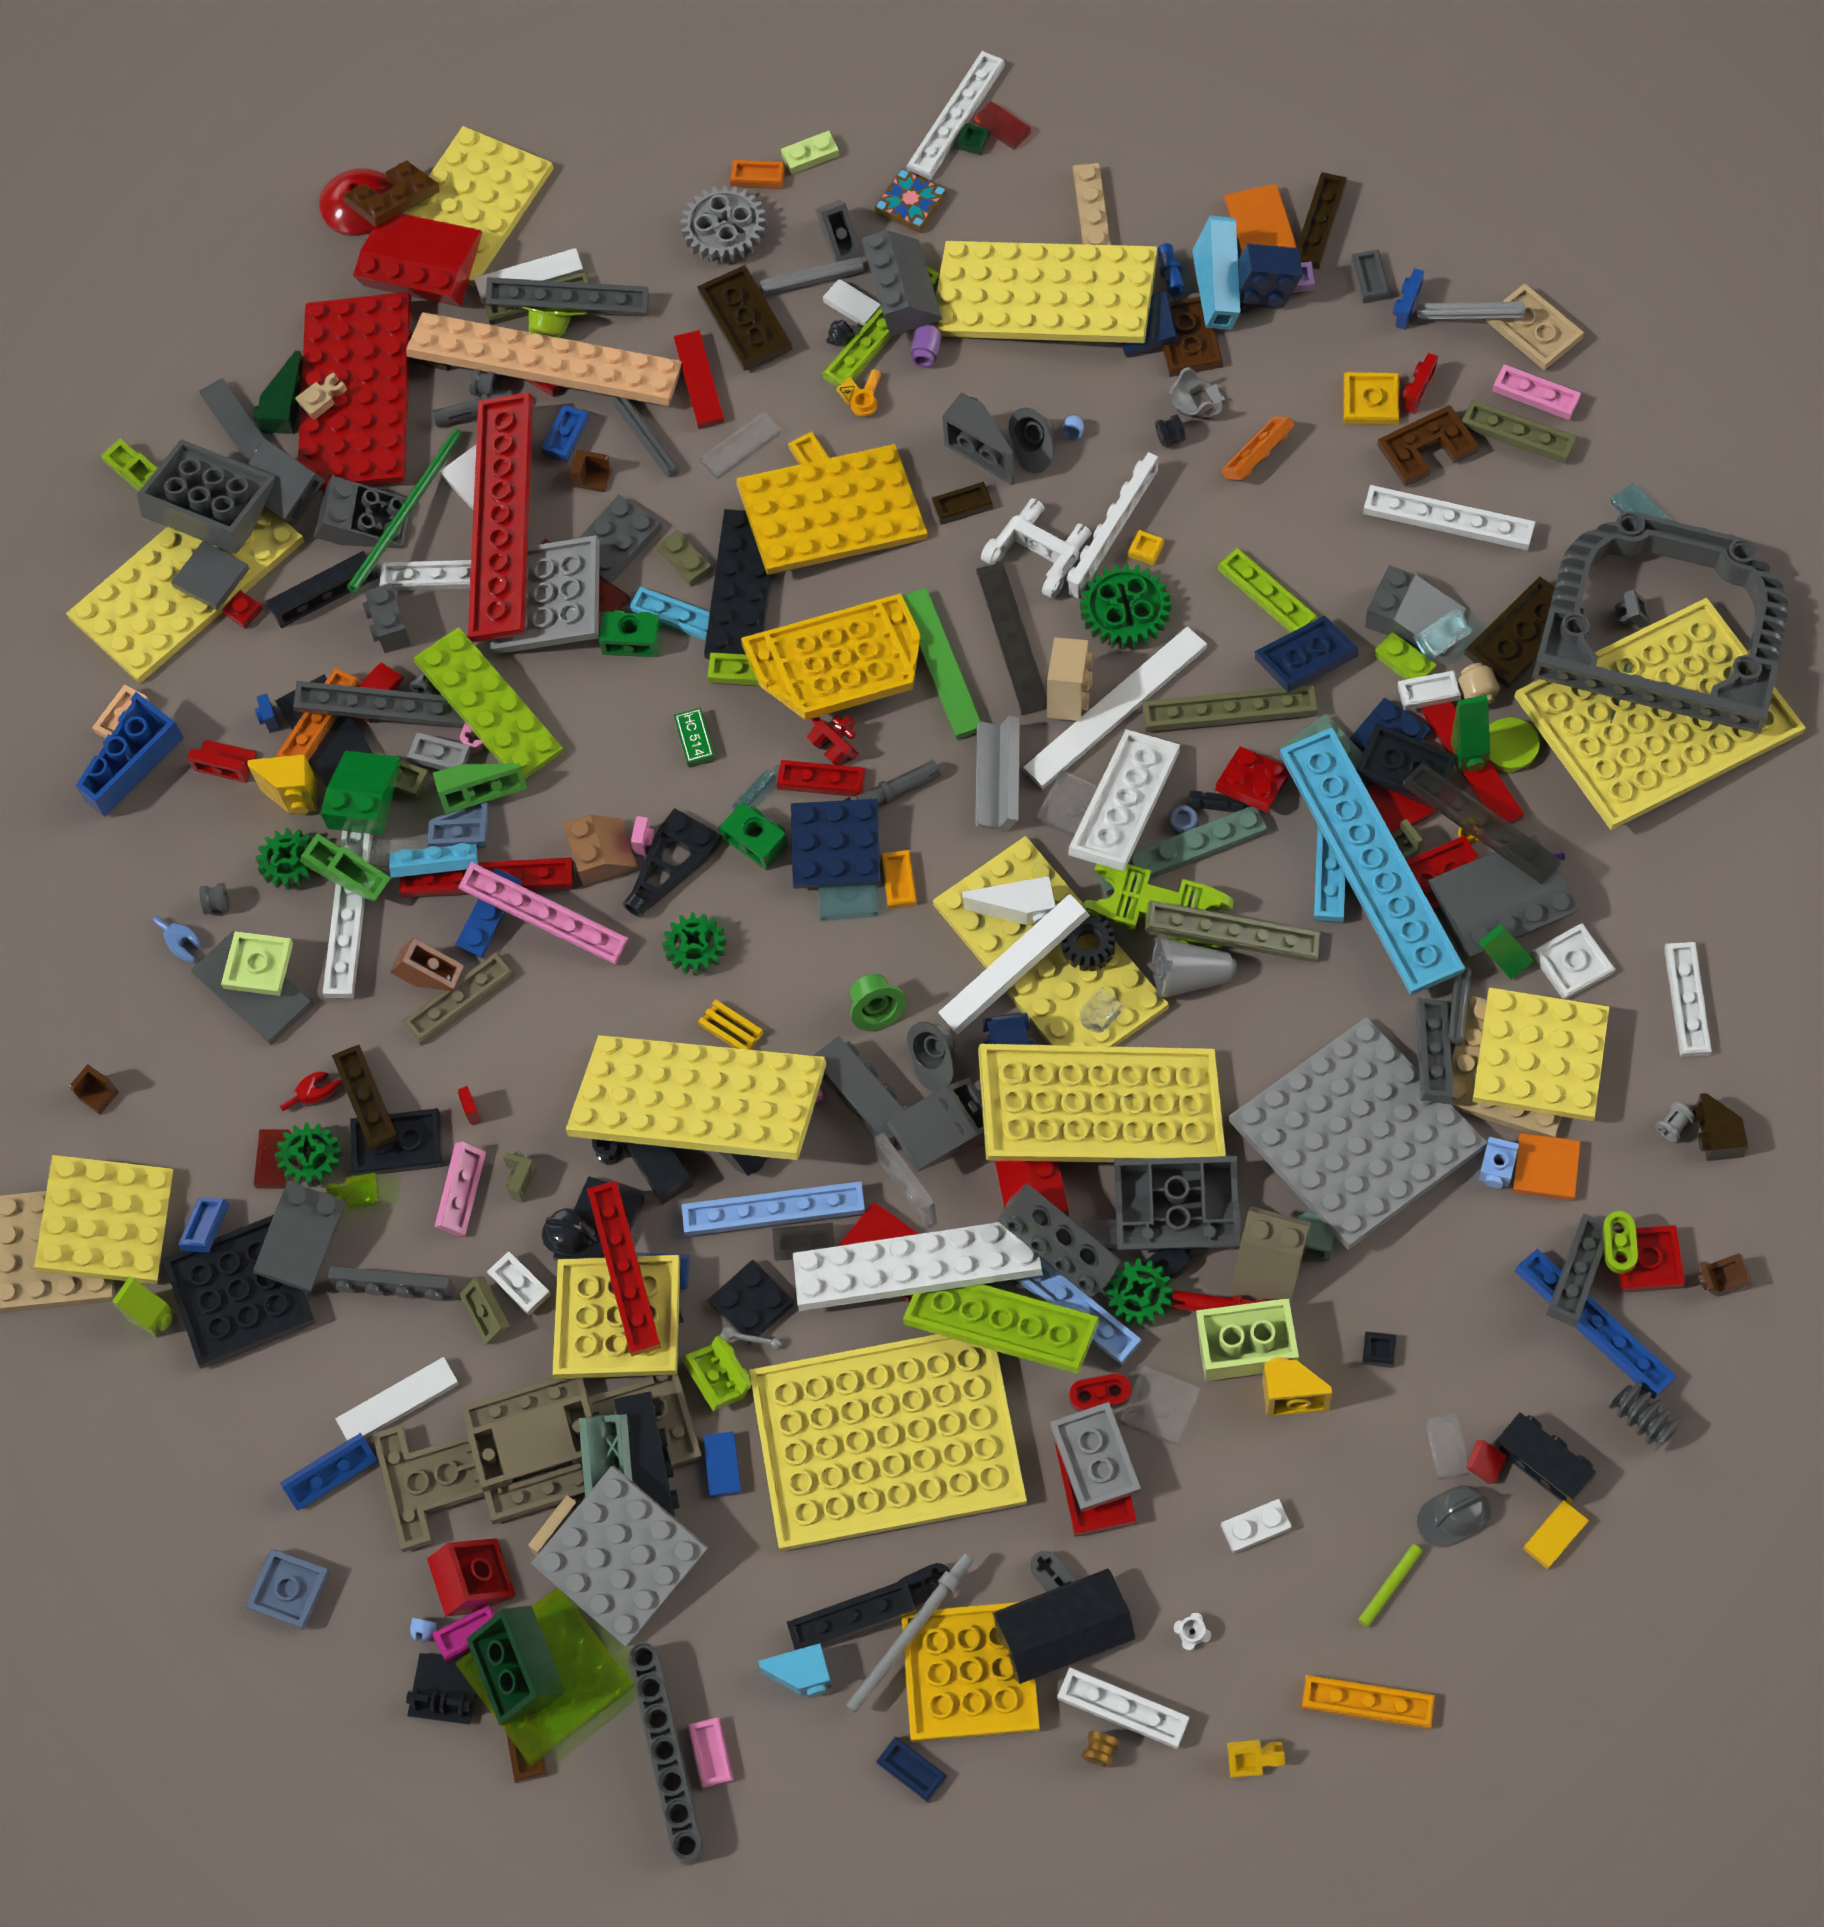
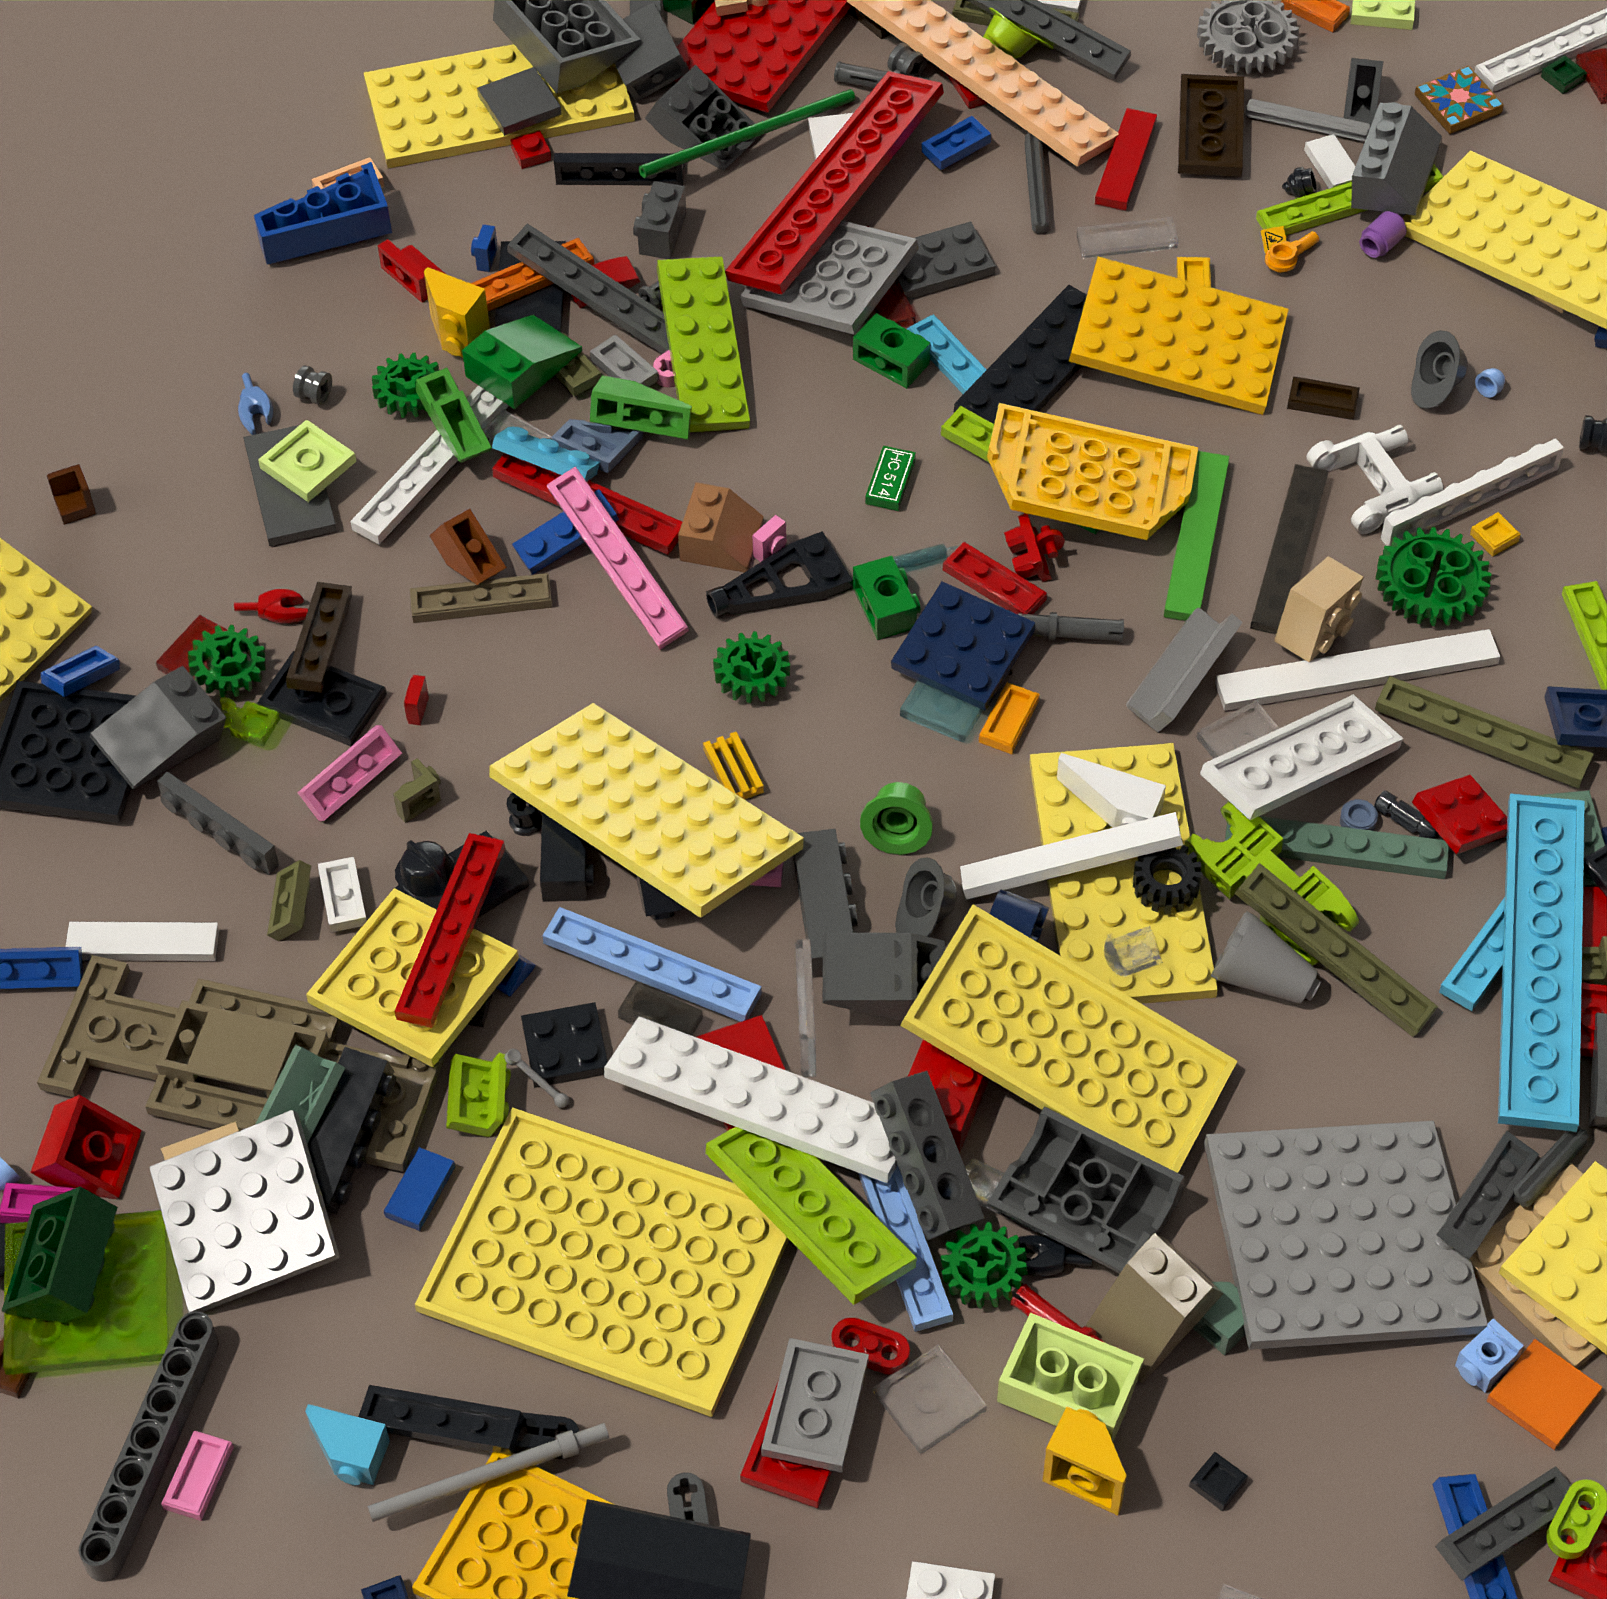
camera: 25 degrees right, 10 degrees down
(426, 575) = (726, 202): white tile -> none
(590, 470) = (957, 186): reddish brown panel -> none
(684, 558) = (996, 311): olive plate -> none
(976, 437) = (1376, 337): dark grey slope -> none

